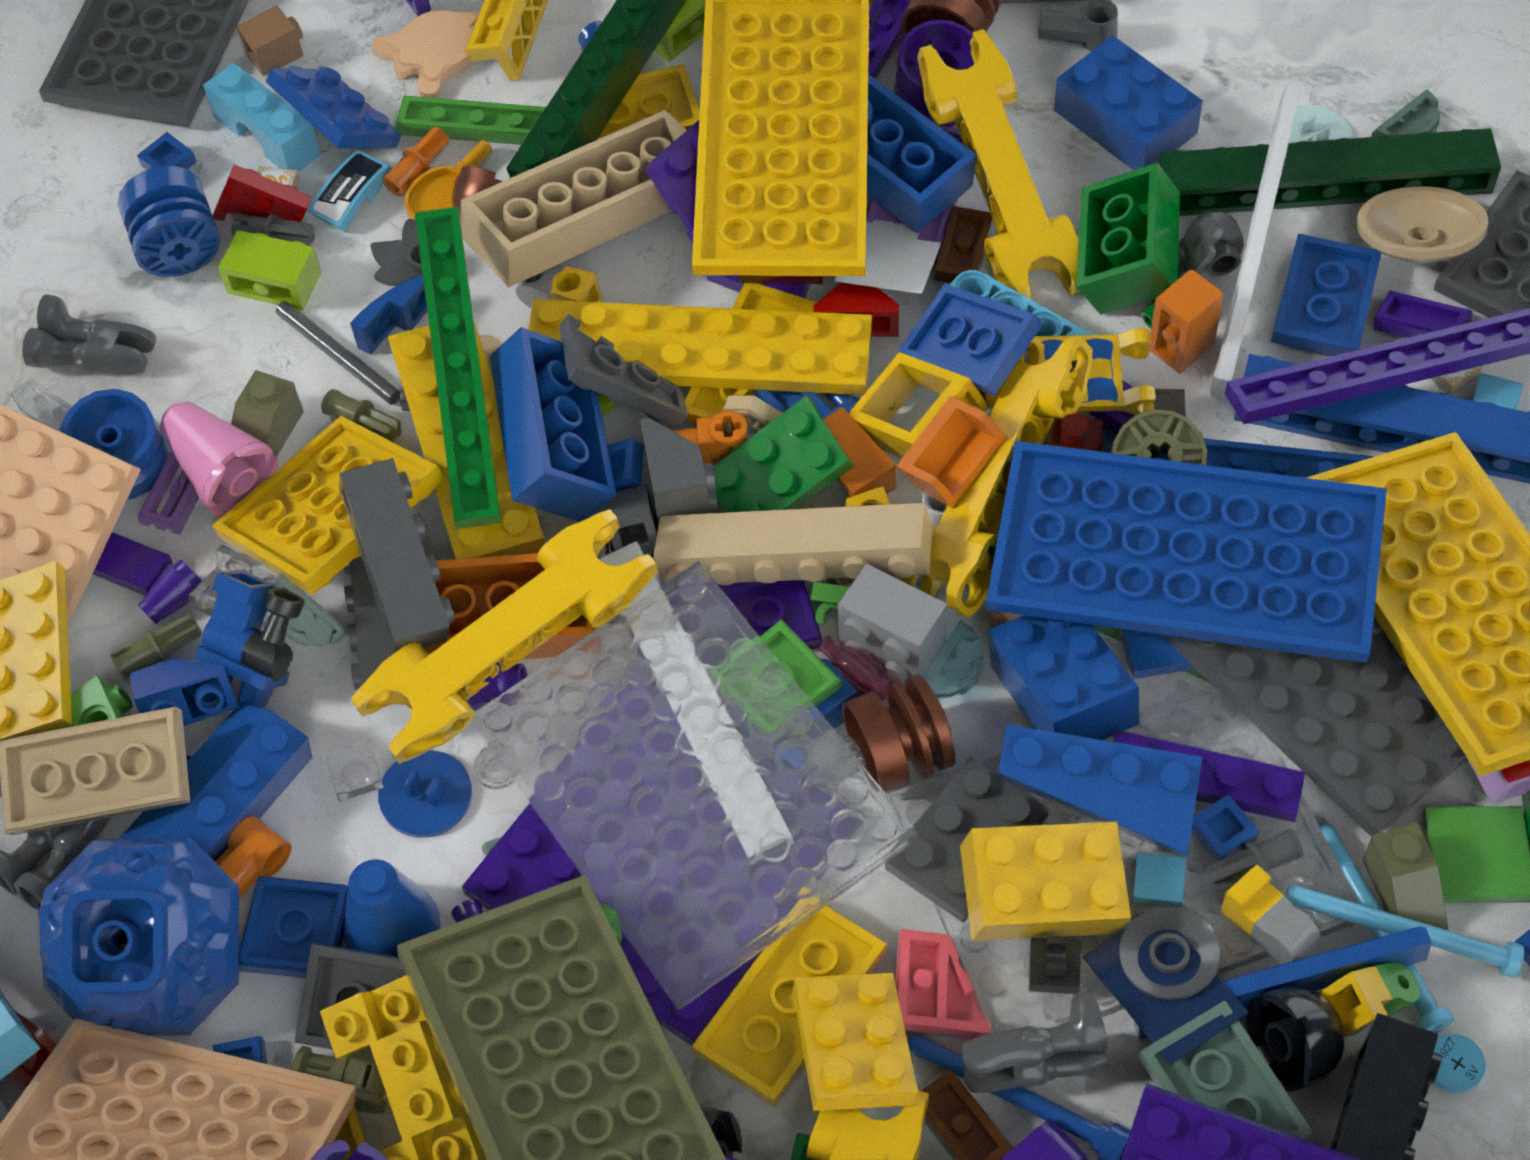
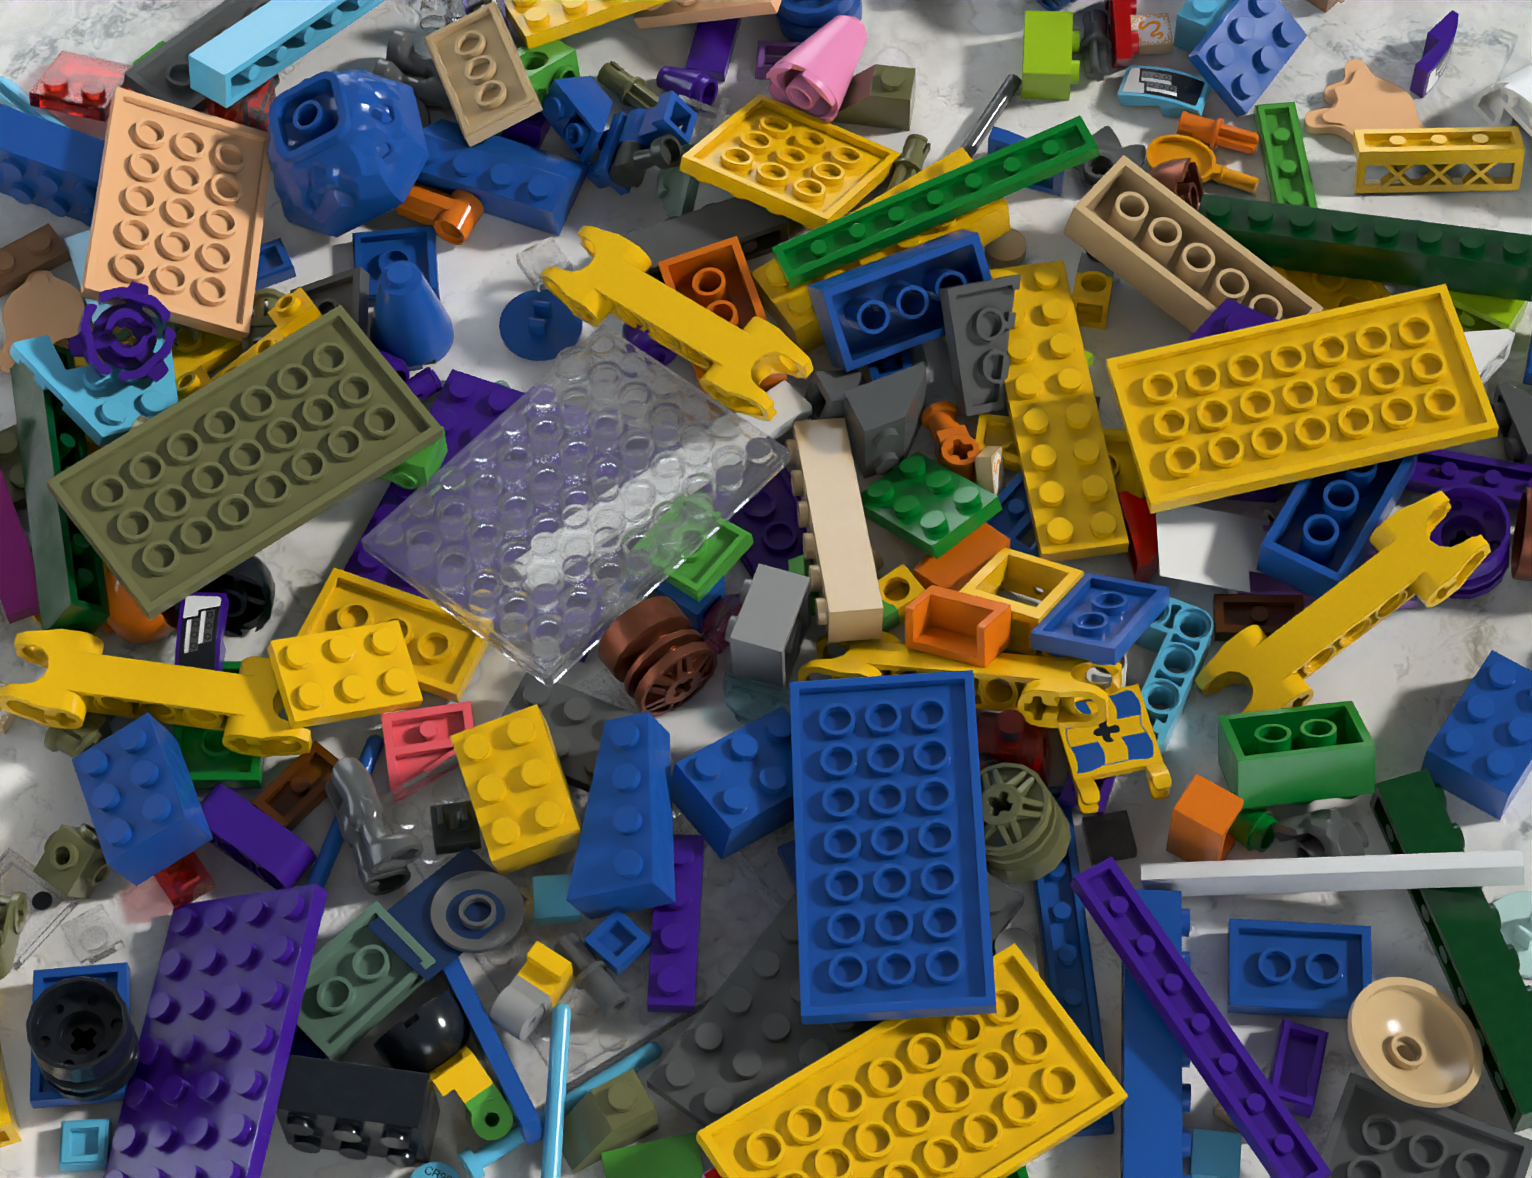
camera: 75 degrees right, 0 degrees up
(394, 555) = (719, 210): dark grey brick -> none

